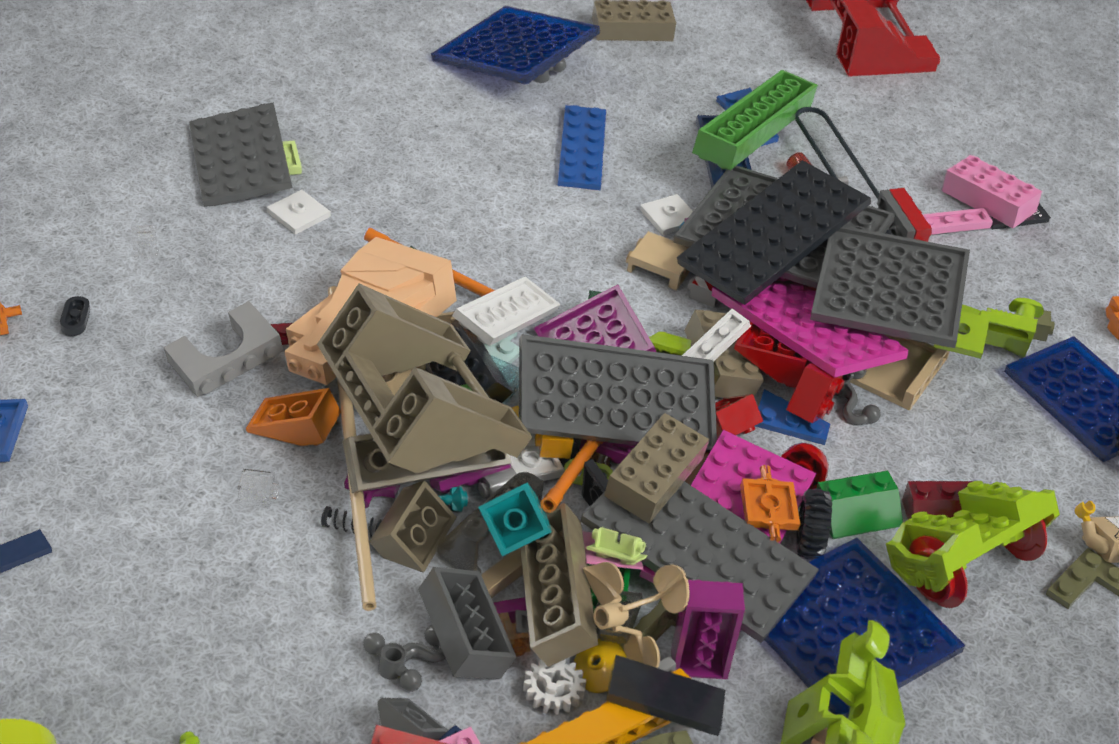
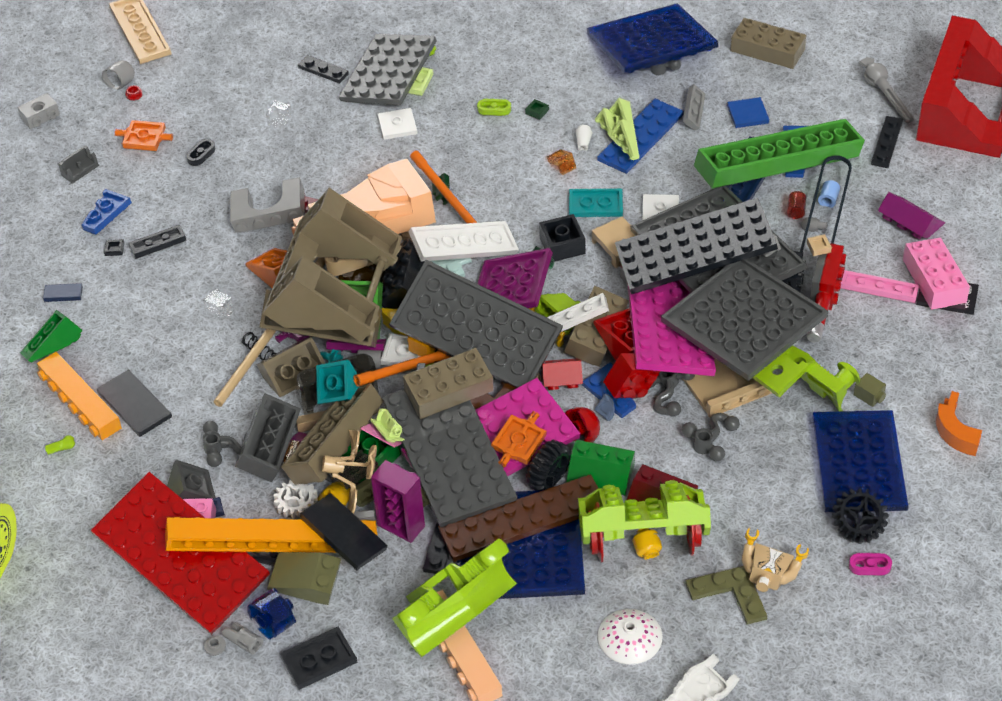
camera: 40 degrees right, 5 degrees up
(47, 469) = (114, 247): none -> black tile
(61, 612) = (52, 336): none -> green slope
(105, 441) = (157, 241): none -> black plate
(154, 177) = (323, 69): none -> plate
(158, 674) = (79, 396): none -> light orange brick
(239, 654) = (134, 403): none -> tile
(398, 161) = (496, 107): none -> lime plate
(449, 150) = (537, 109): none -> dark green plate
(524, 162) = (583, 136): none -> white cone
(524, 193) = (563, 160): none -> clear orange bracket
(558, 139) = (620, 126): none -> yellowish green wedge
(596, 229) = (596, 202): none -> teal tile
(601, 270) = (563, 237): none -> black brick
(614, 104) = (694, 107): none -> light grey plate
(669, 94) = (748, 112): none -> blue tile
(764, 23) = (876, 75): none -> light grey piece
(766, 670) = (437, 554): none -> black plate
(803, 435) = (606, 407): none -> sand blue tile
(825, 147) = (829, 193): none -> light blue brick
(826, 84) = (887, 142): none -> black plate
(830, 598) = (517, 519): none -> reddish brown plate
(887, 192) = (819, 245): none -> tan plate
(915, 145) = (909, 216): none -> magenta slope
(934, 430) = (705, 437): none -> dark grey piece
(981, 569) = (647, 543): none -> yellow head
(1046, 677) = (630, 645): none -> white dish

